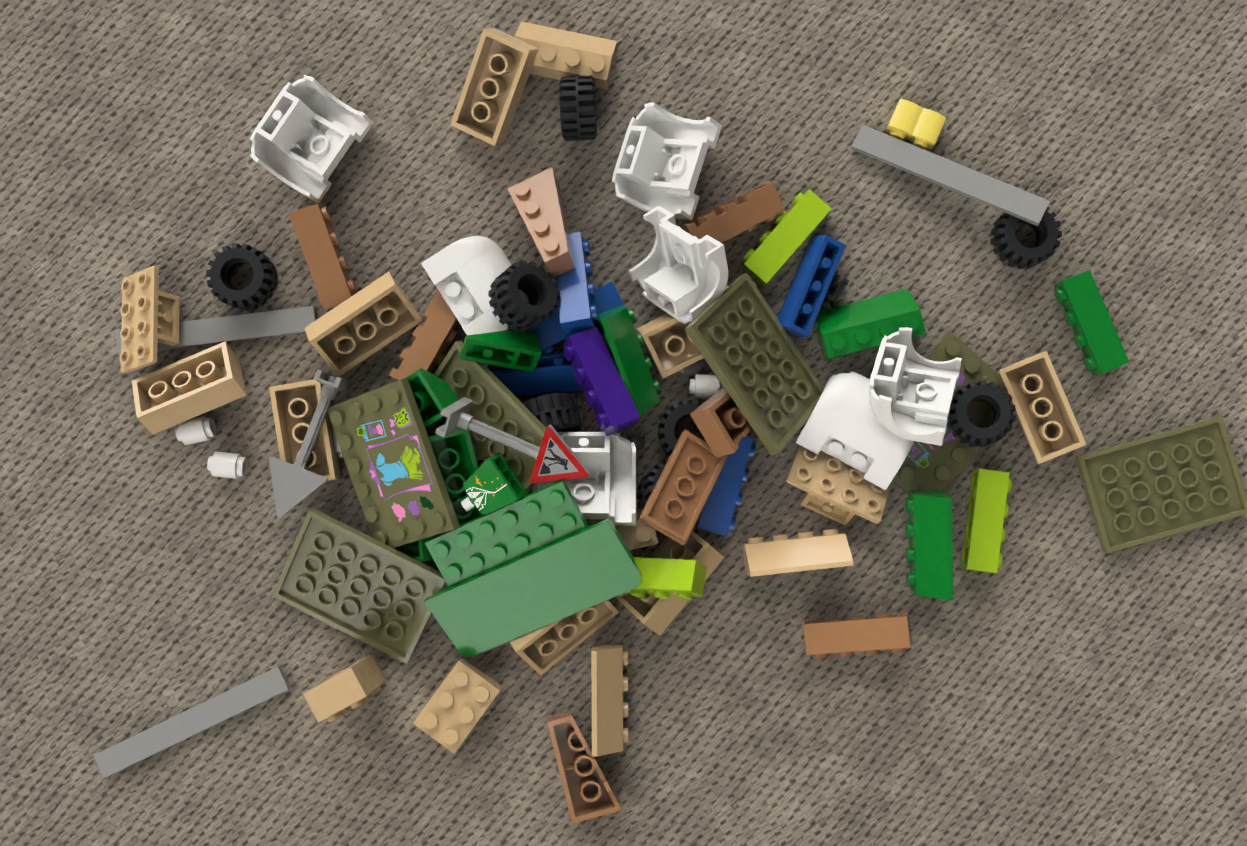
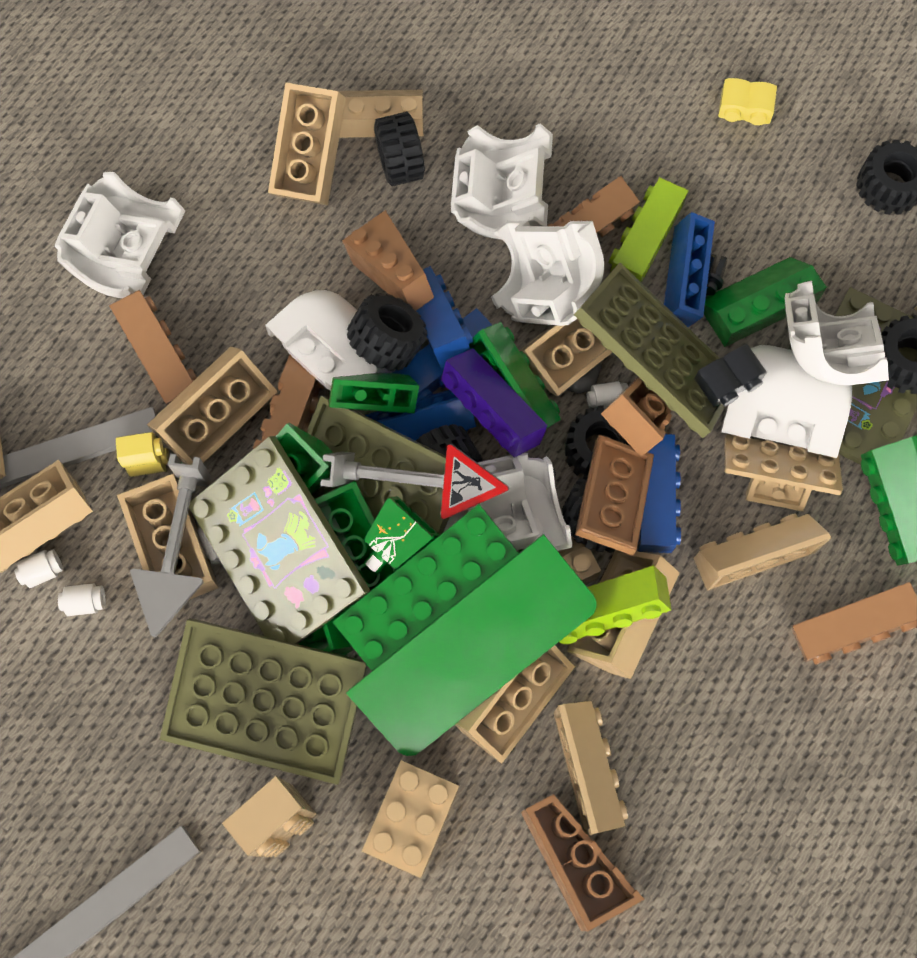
camera: 10 degrees left, 15 degrees down
(222, 271) = (56, 373): black tyre -> none
(295, 352) = (142, 454): none -> light yellow brick
(811, 405) = (731, 375): none -> black brick
(950, 175) = (800, 135): light grey tile -> none

